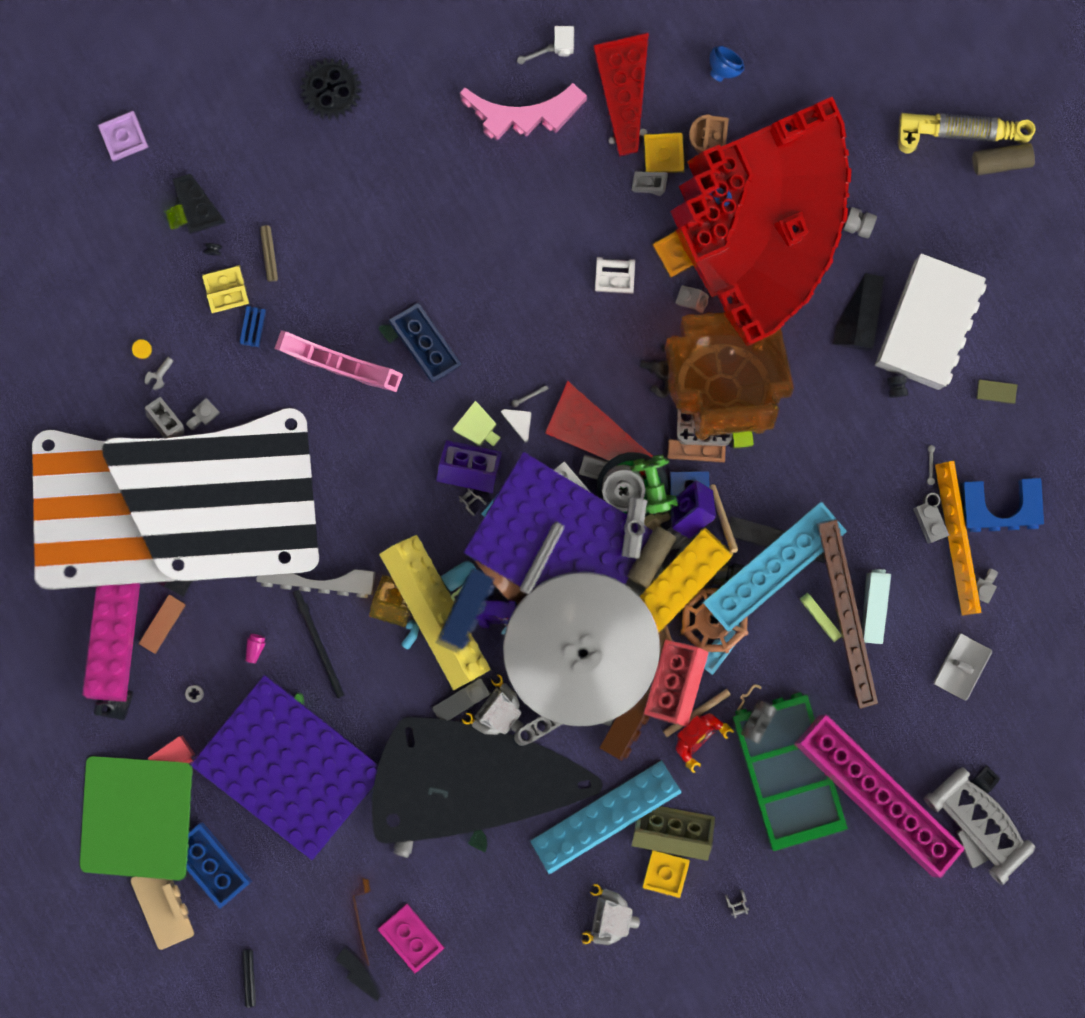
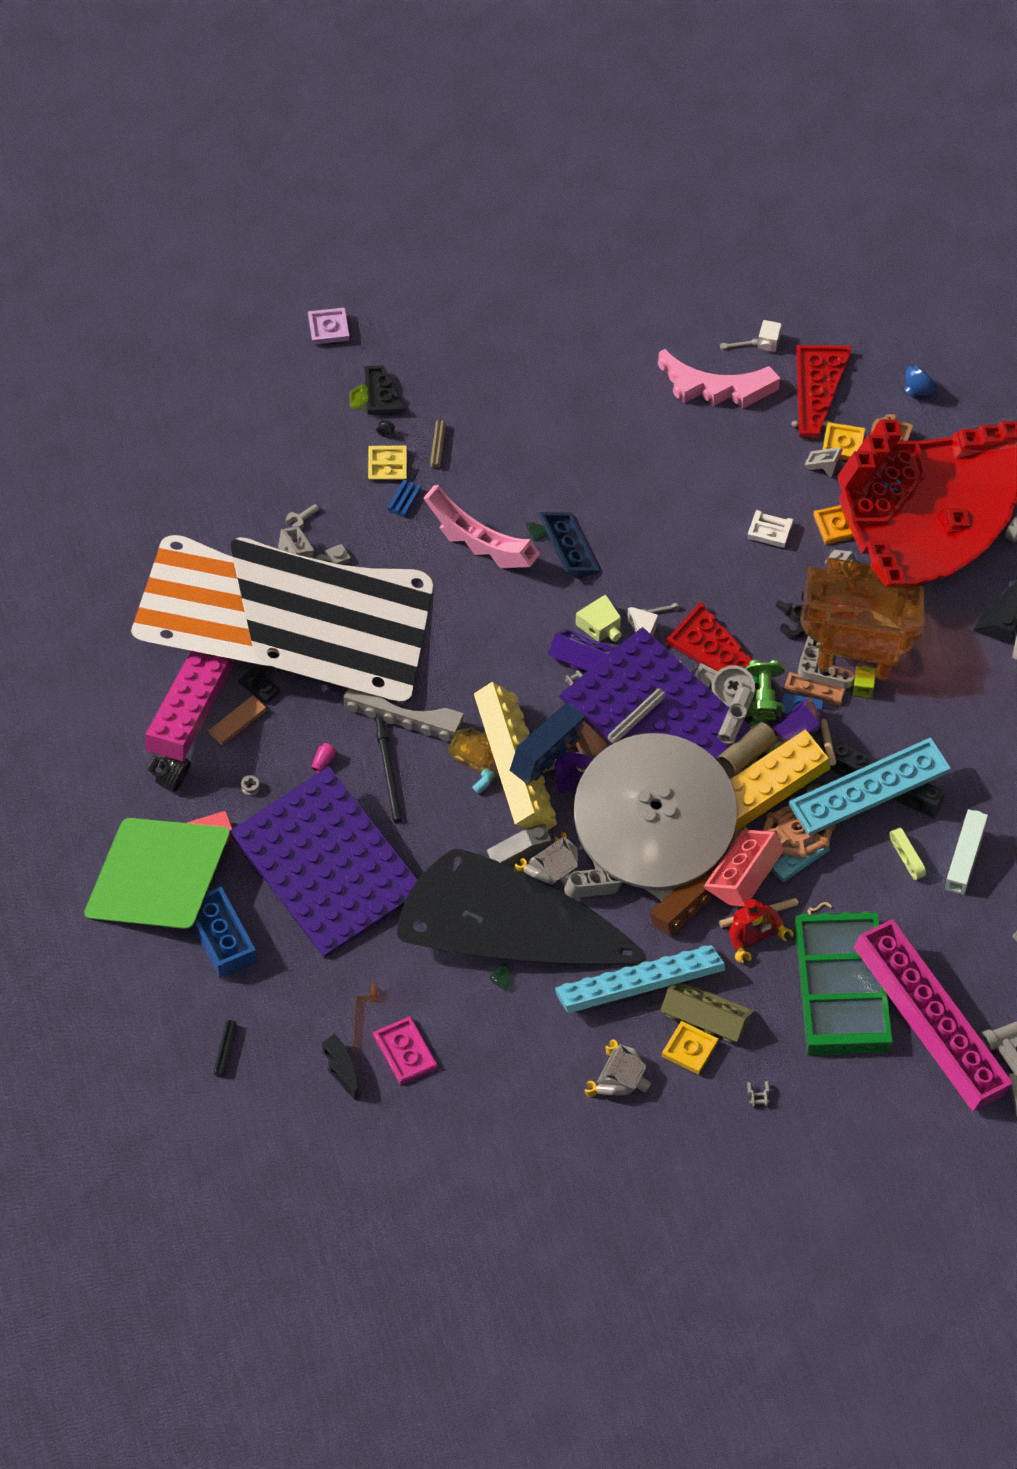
camera: 10 degrees right, 30 degrees down
(142, 349) = (291, 494): yellow tile -> none
(163, 910) = (157, 964): tan bracket -> none
(323, 74) = (536, 329): black gear -> none
(403, 848) = (422, 962): light grey cone -> none
(758, 721) = (825, 915): dark grey piece -> none
(847, 613) = (935, 845): reddish brown plate -> none

